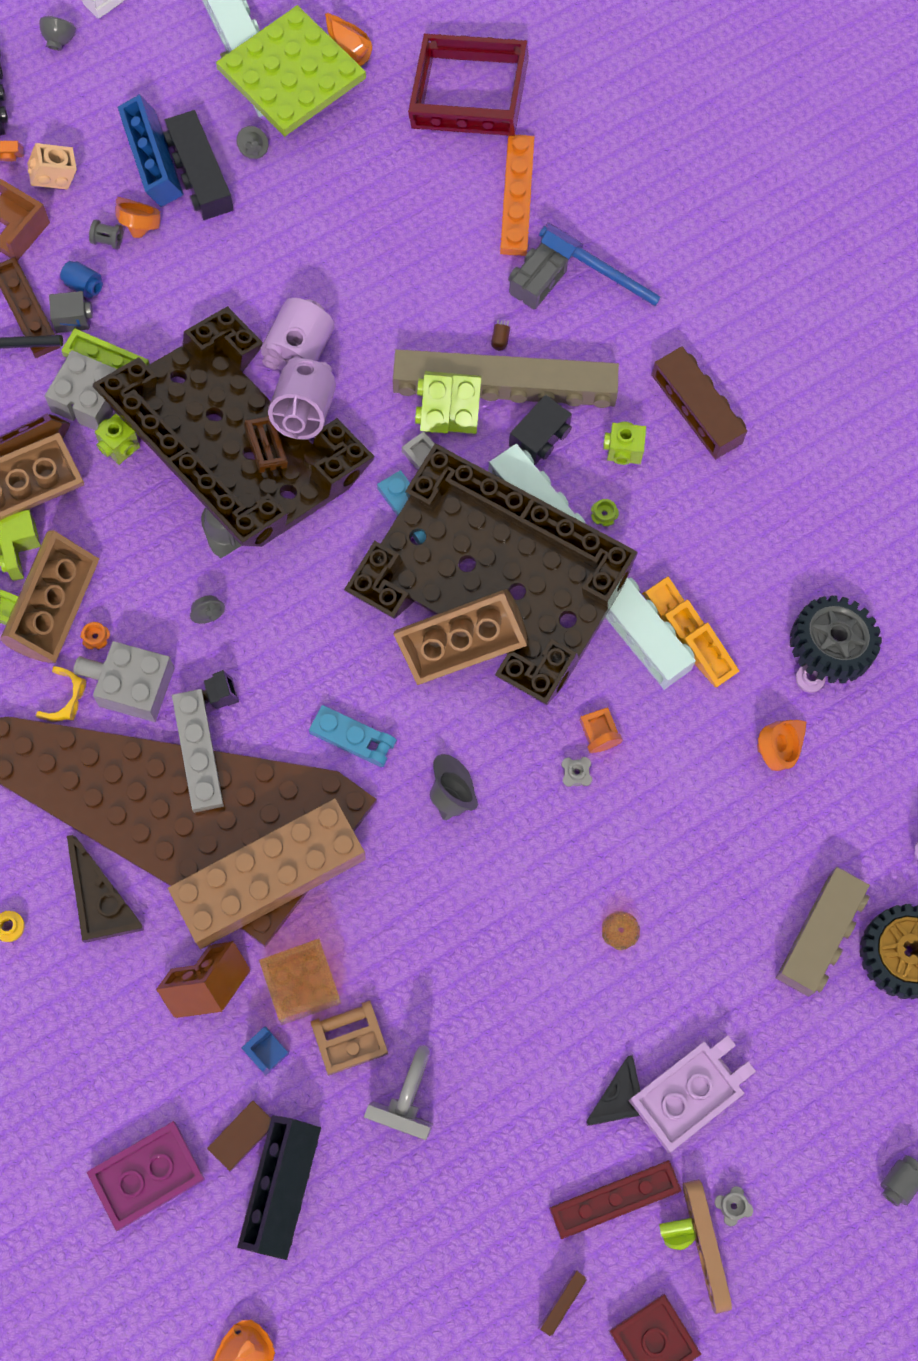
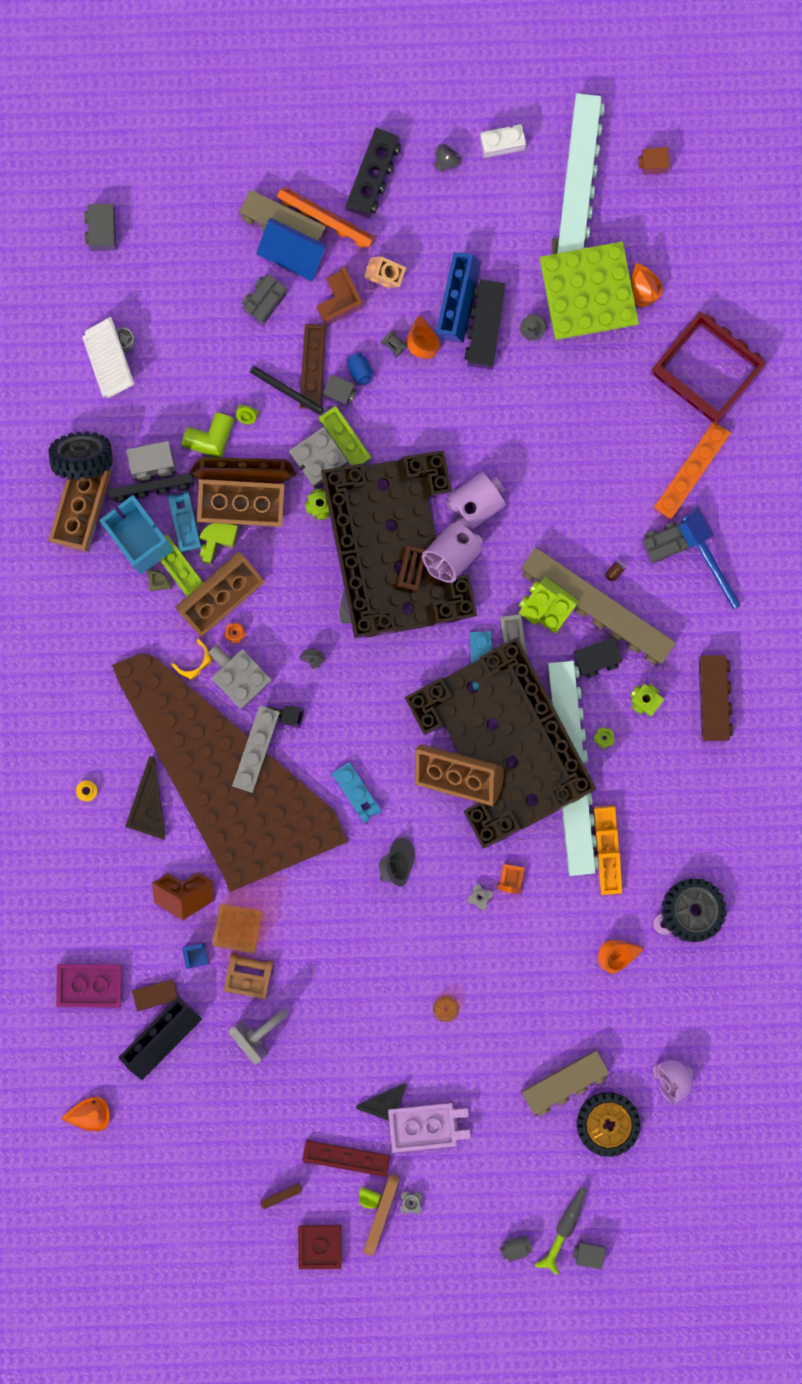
camera: 35 degrees right, 15 degrees up
(267, 873) = (254, 853): medium nougat brick -> none

